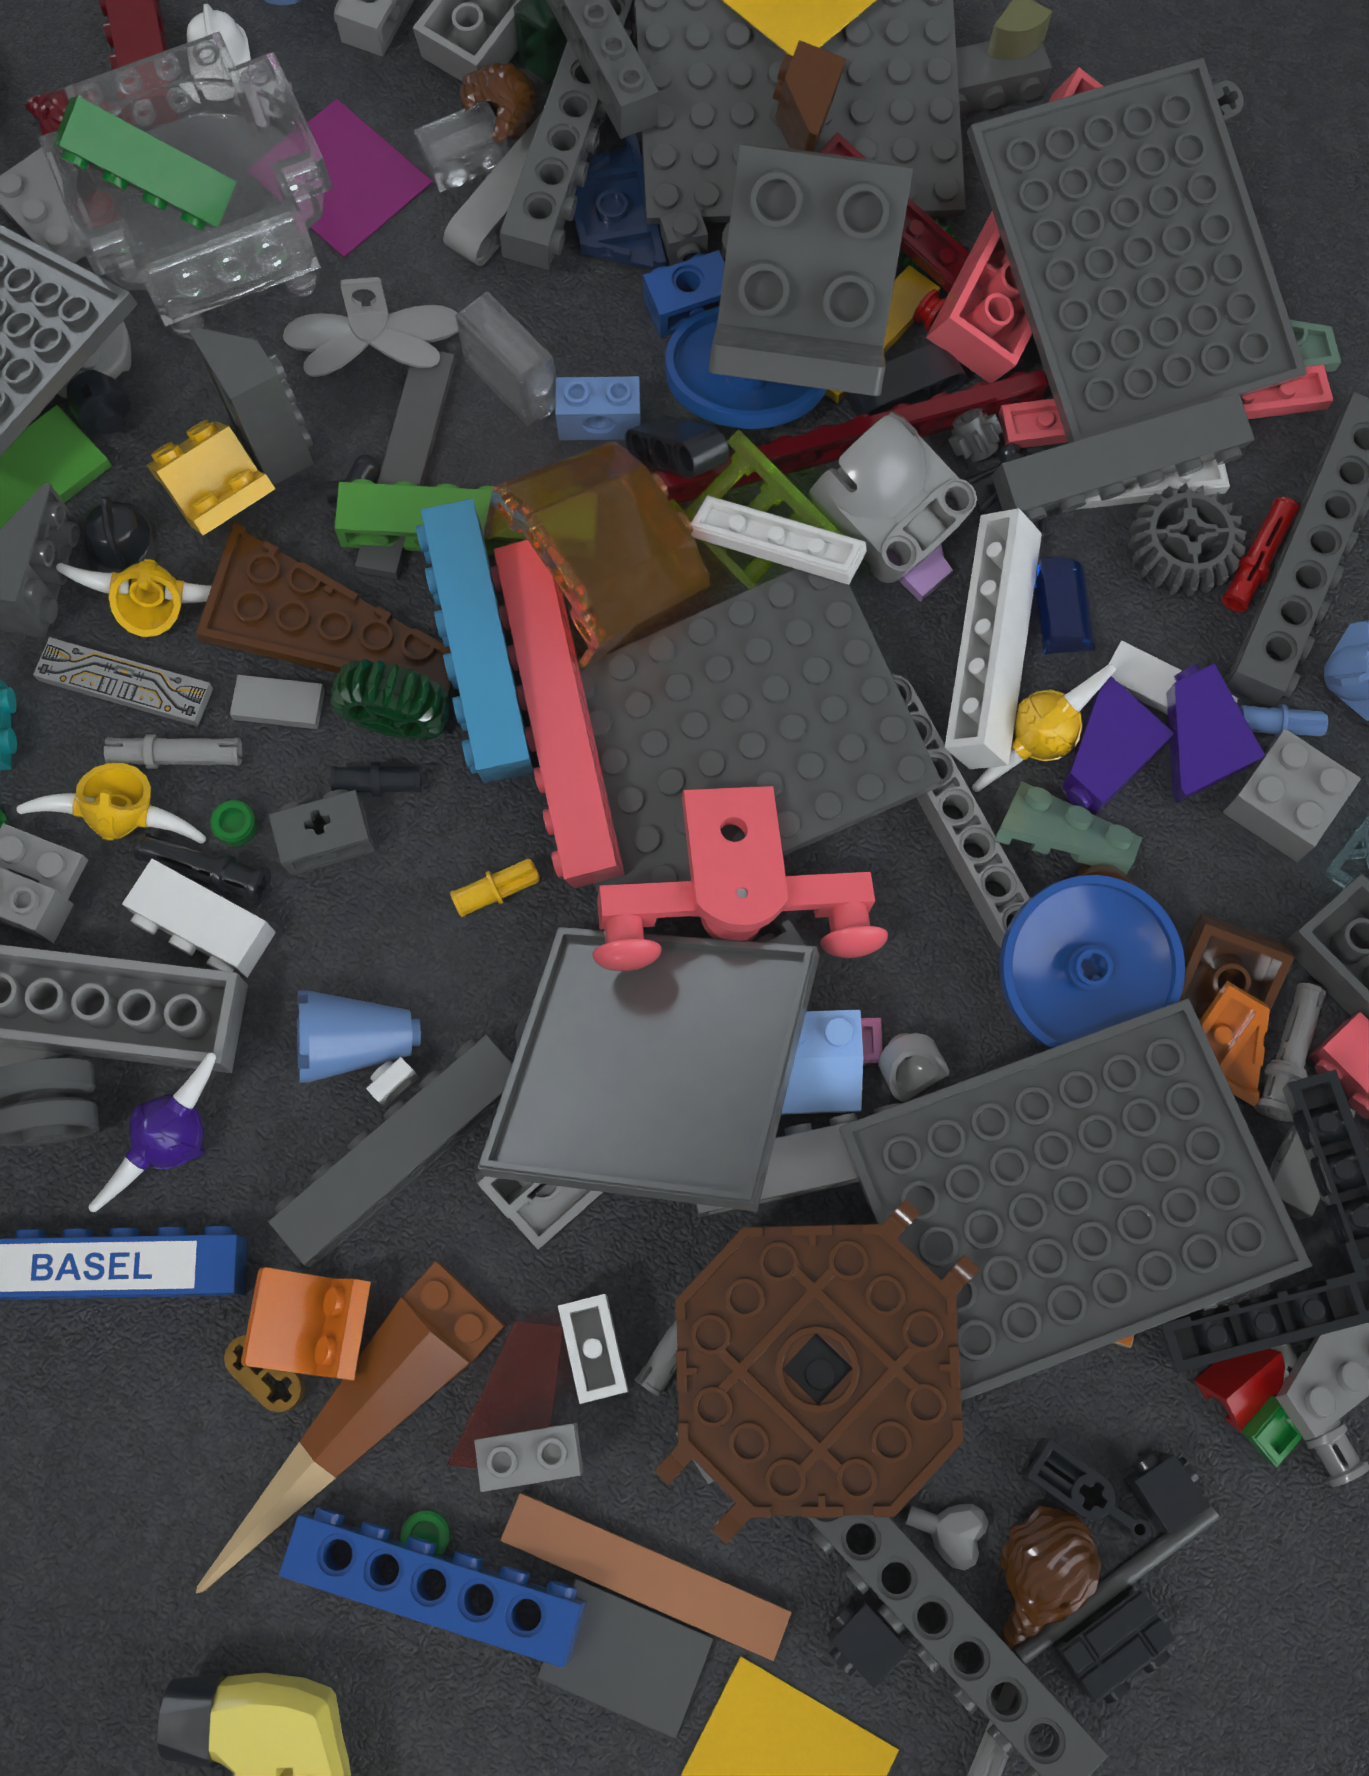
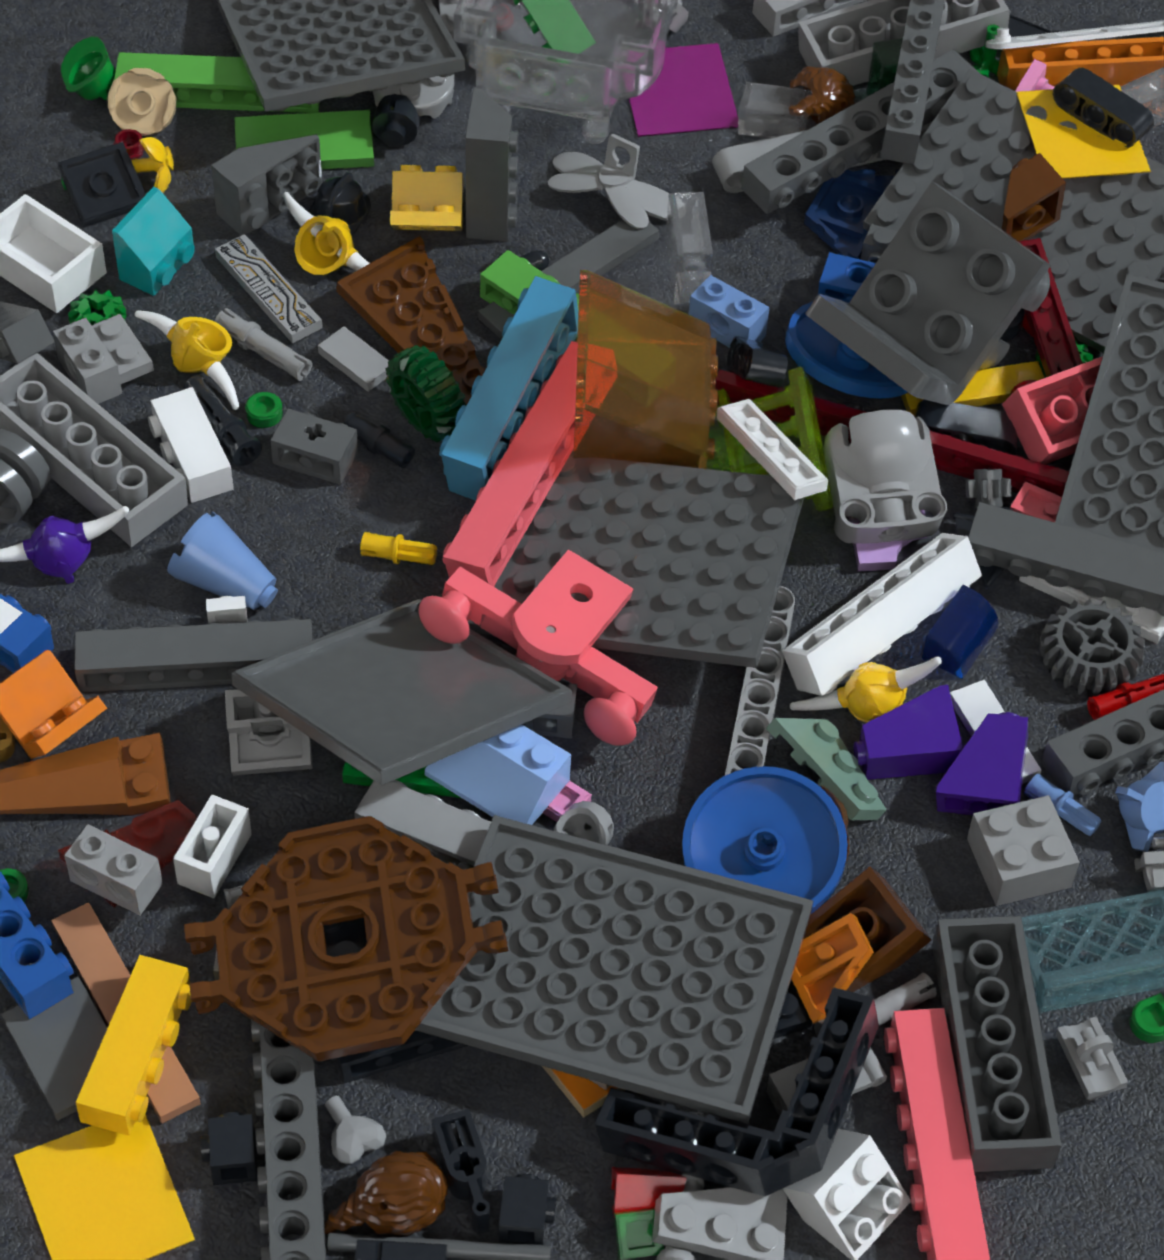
camera: 35 degrees right, 20 degrees down
(699, 1620) = (134, 1046): none -> yellow brick

